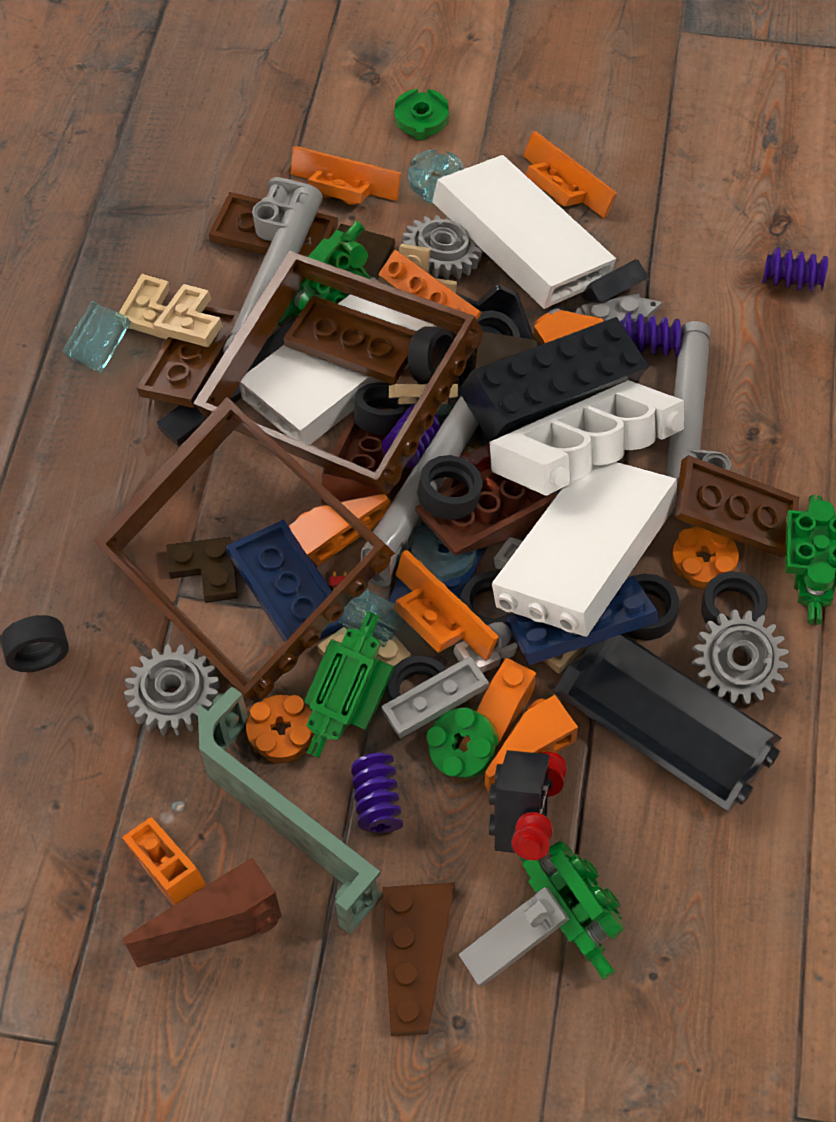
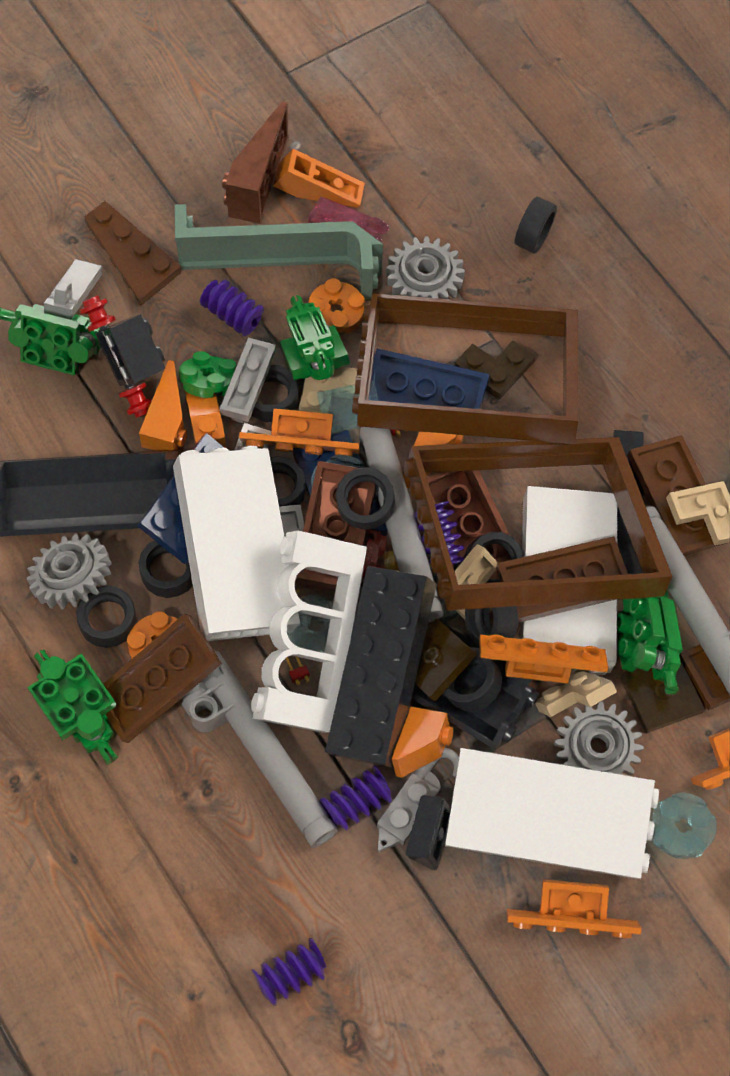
camera: 135 degrees right, 5 degrees up
(183, 809) = (330, 211): none -> clear pink hinge

